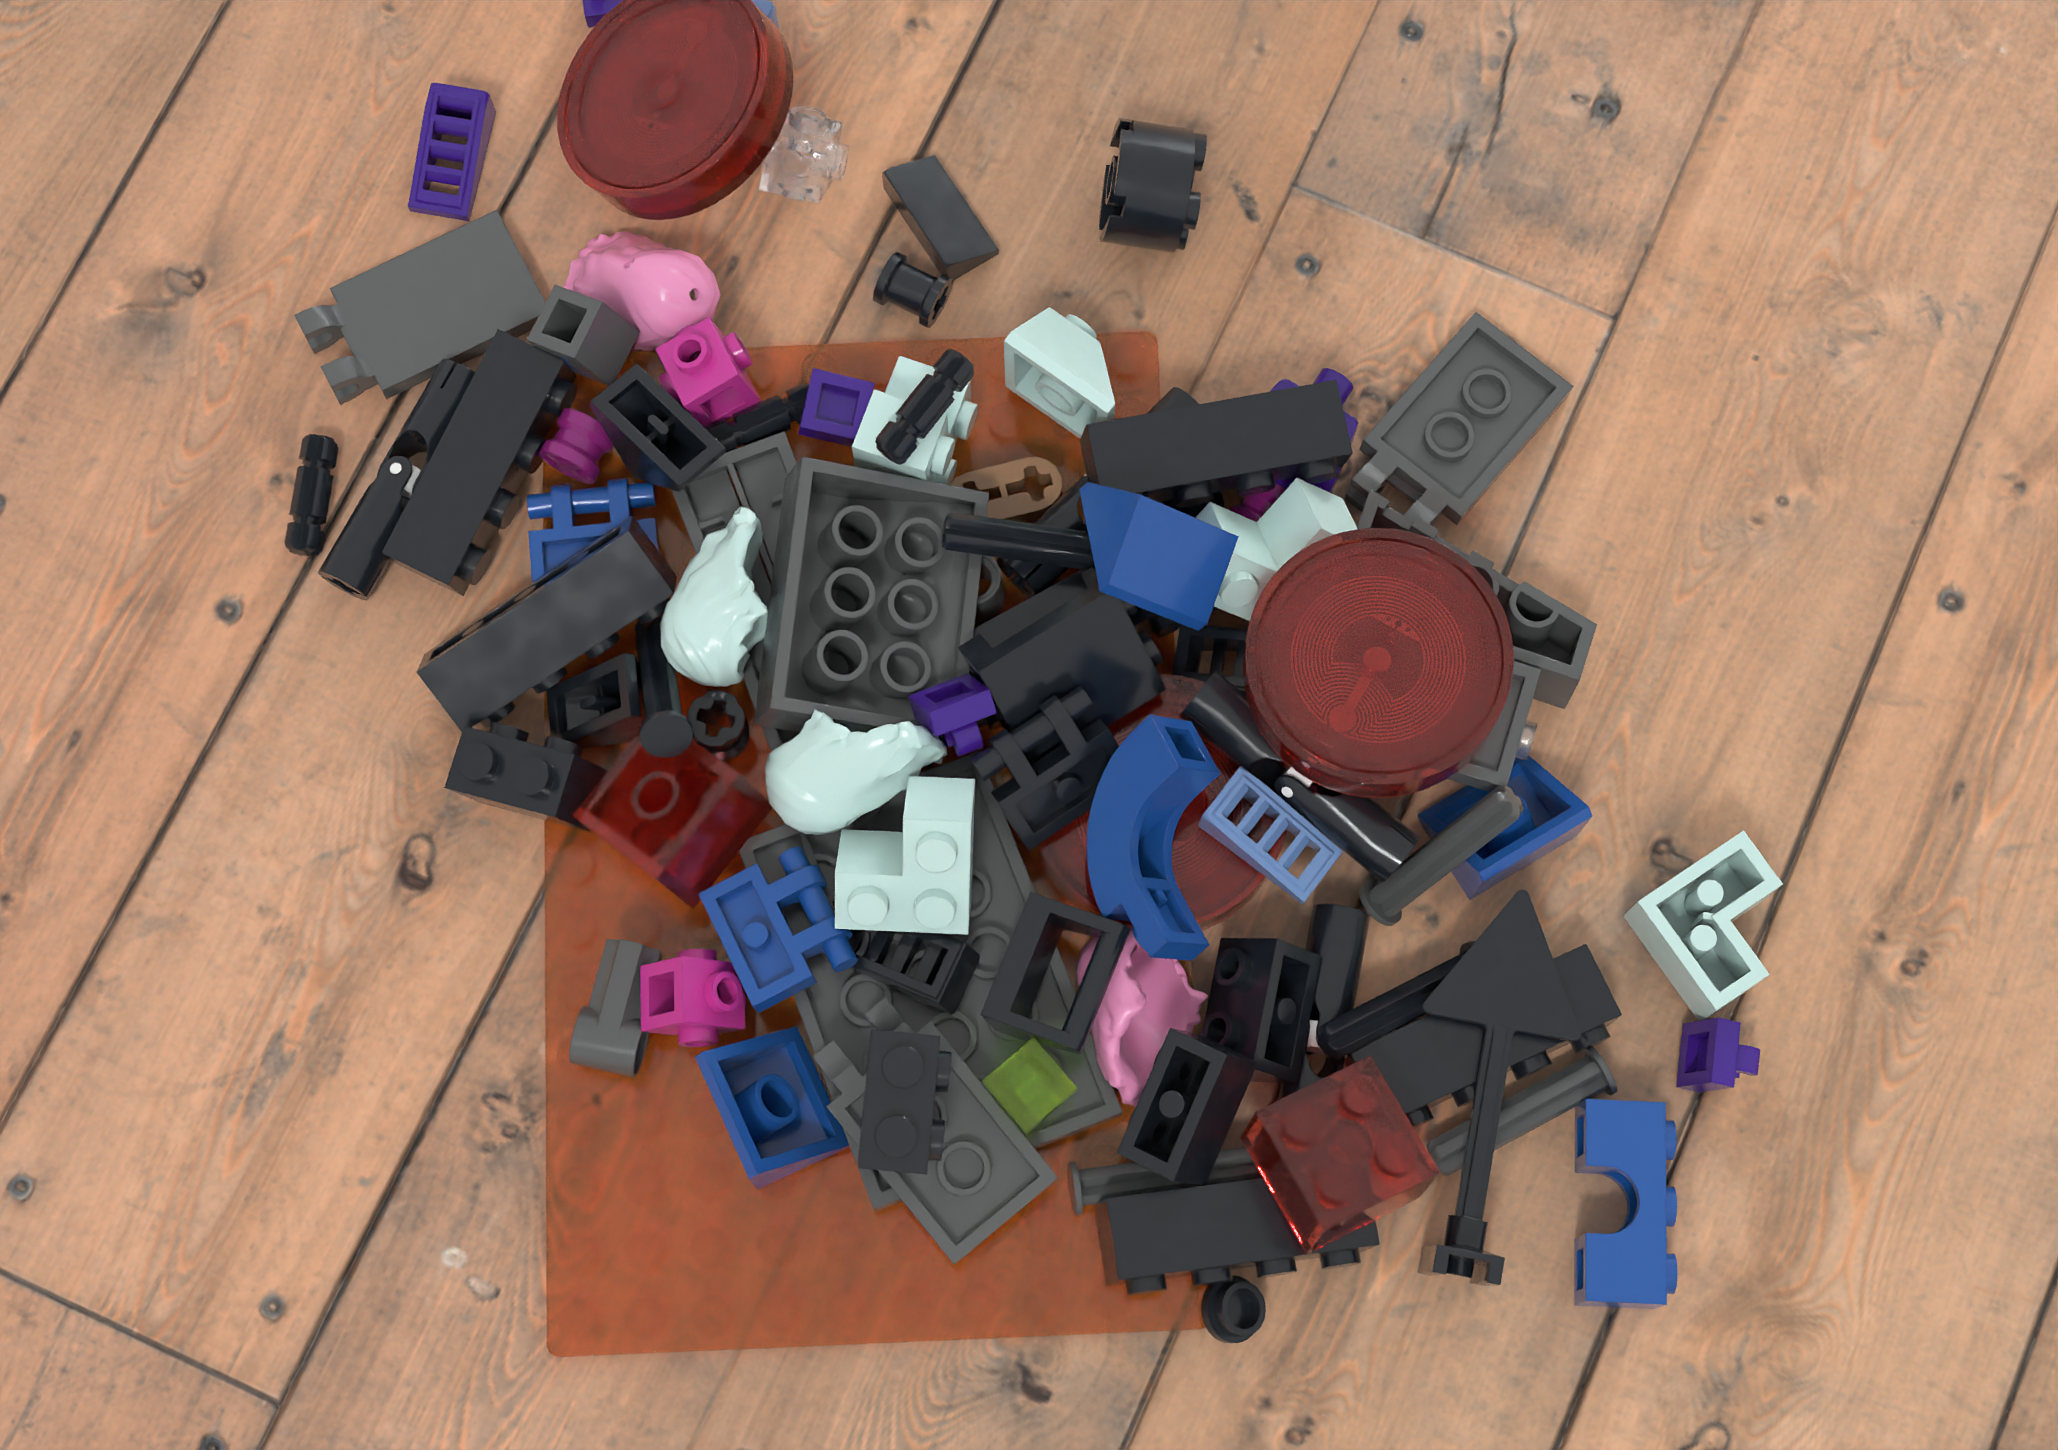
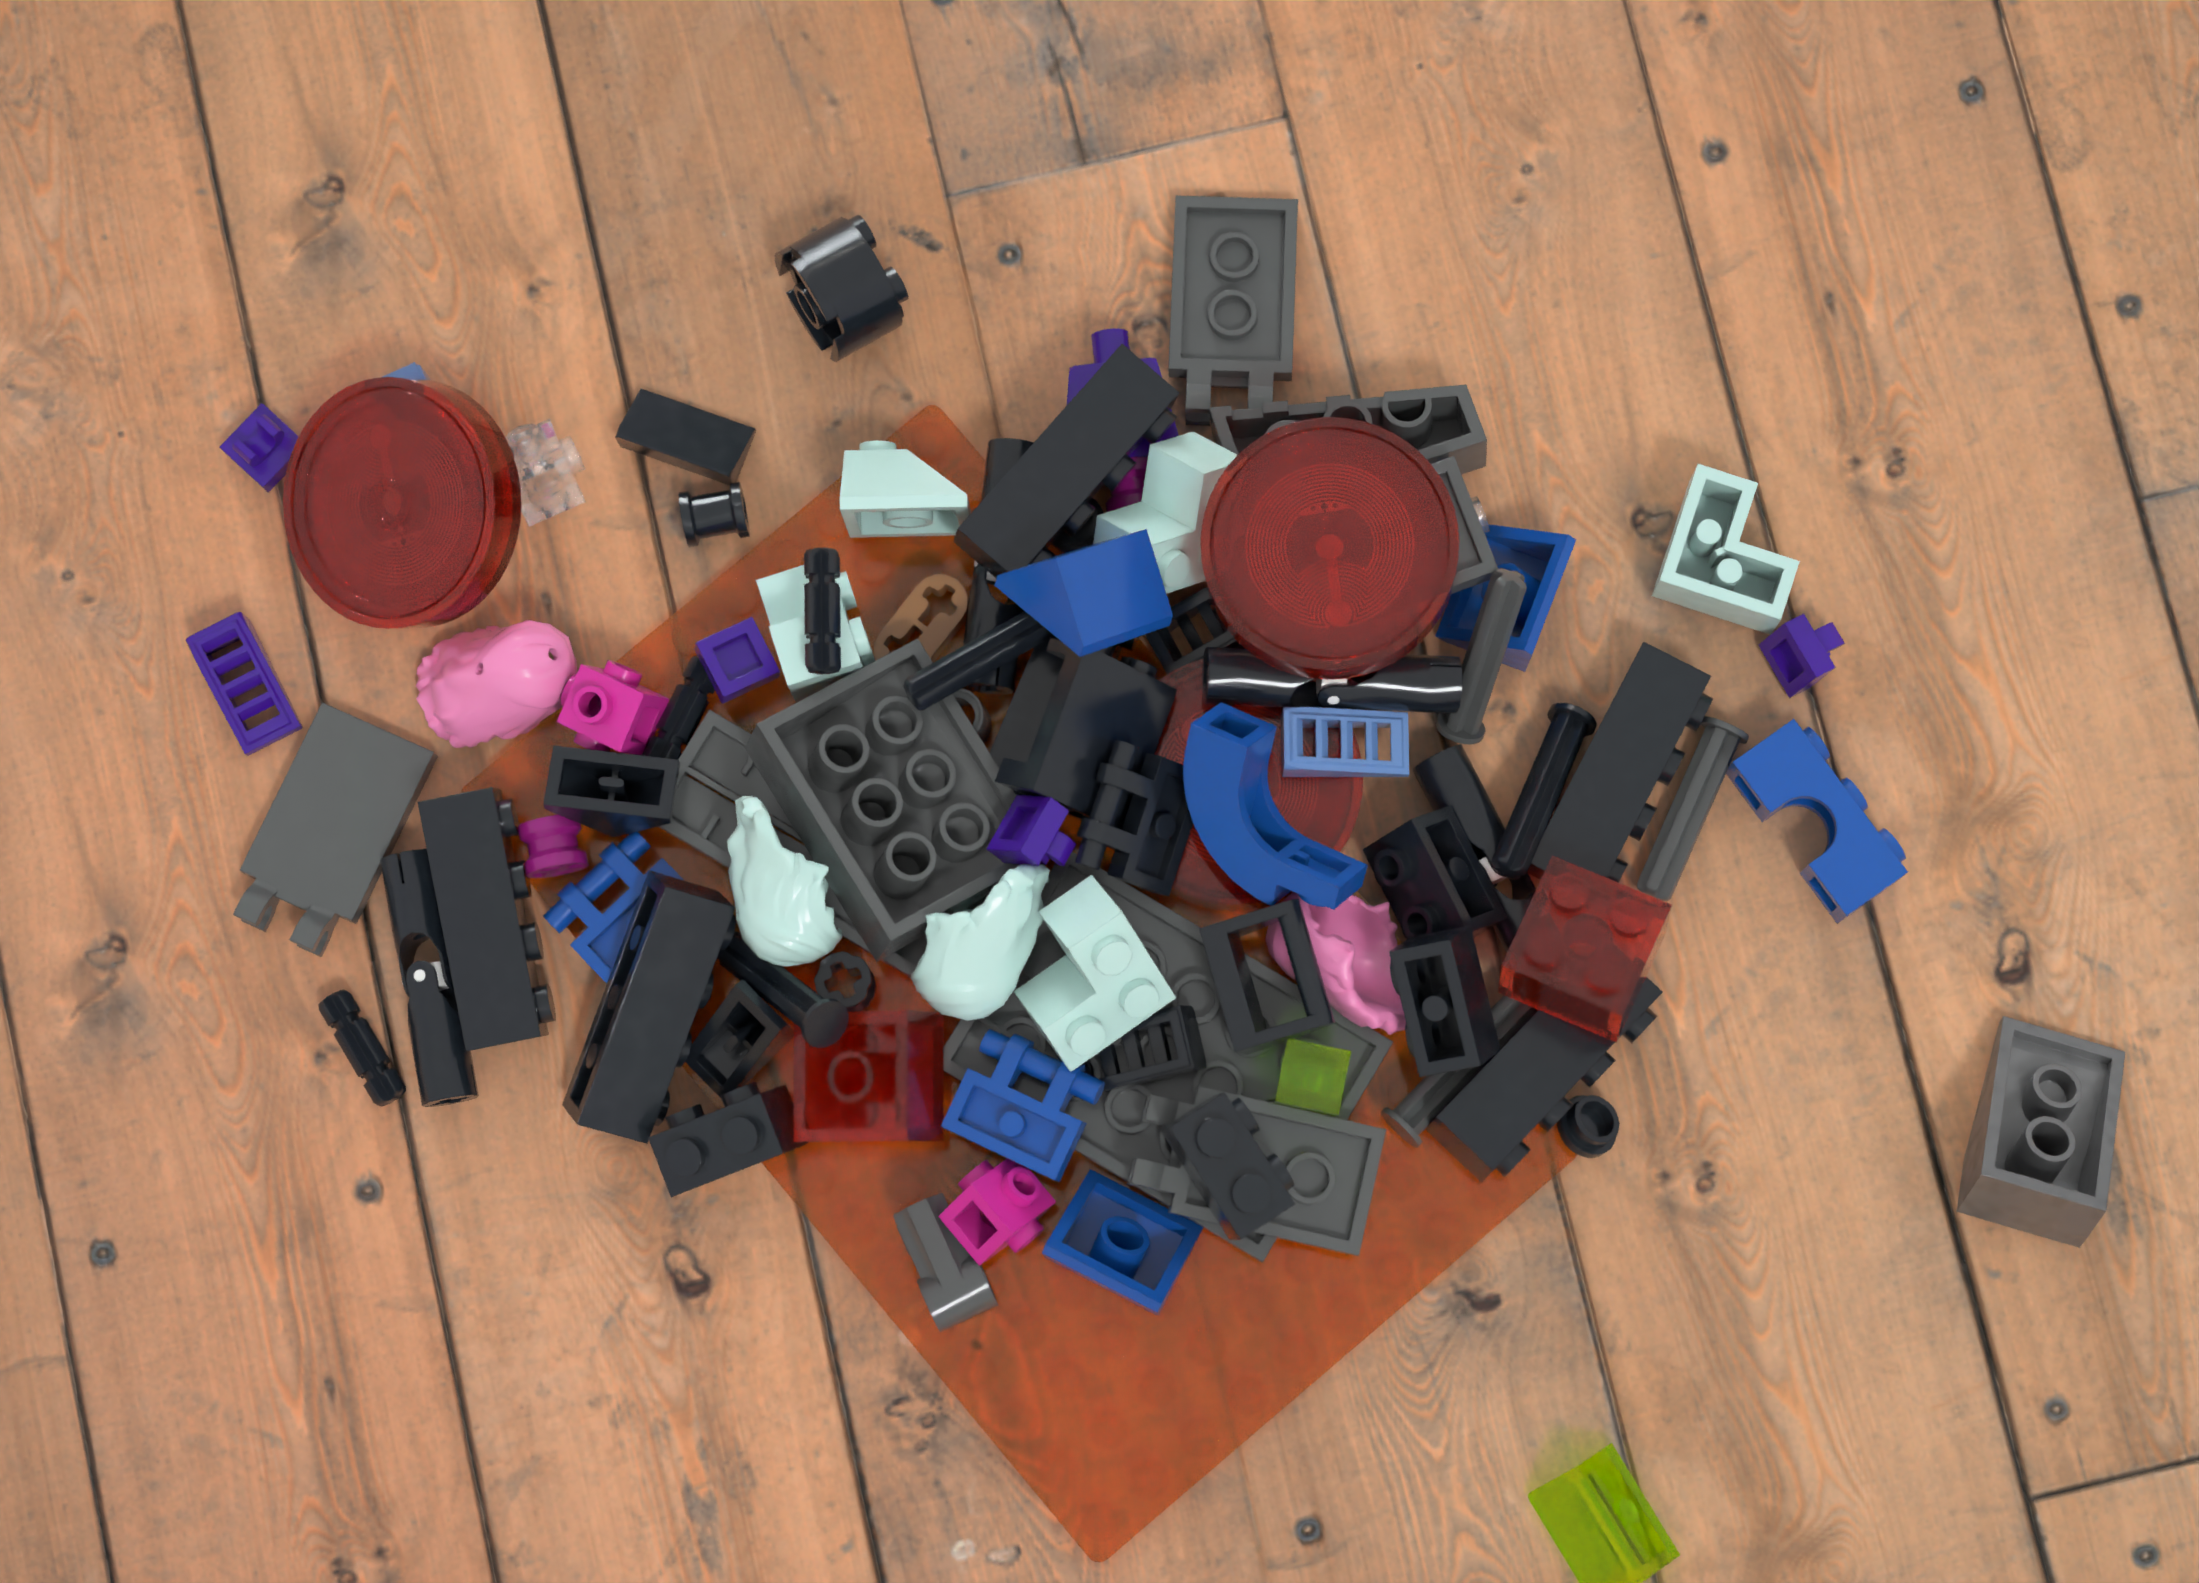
camera: 30 degrees left, 5 degrees up
(583, 334) = (489, 754): dark grey brick -> none
(1507, 987) = (1609, 723): black piece -> none

